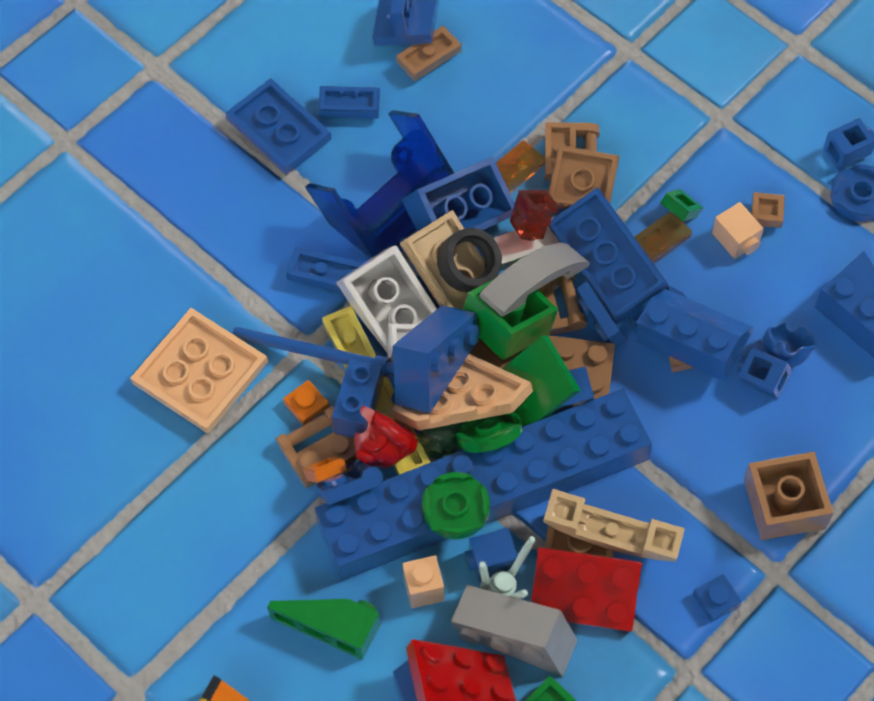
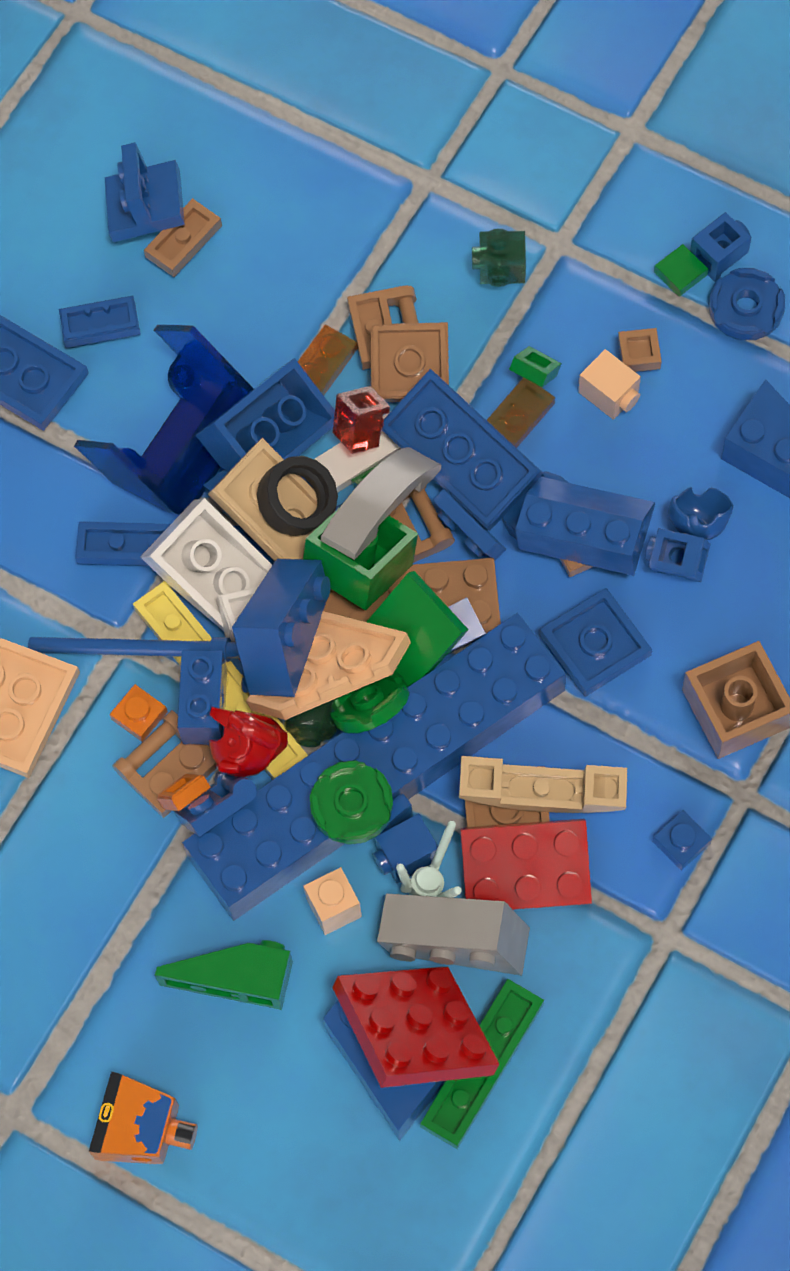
camera: 10 degrees left, 5 degrees up
(494, 523) = (401, 811): none -> blue tile
(672, 116) = (500, 257): none -> clear green brick
(682, 426) = (595, 642): none -> blue plate
(814, 156) = (680, 270): none -> green tile

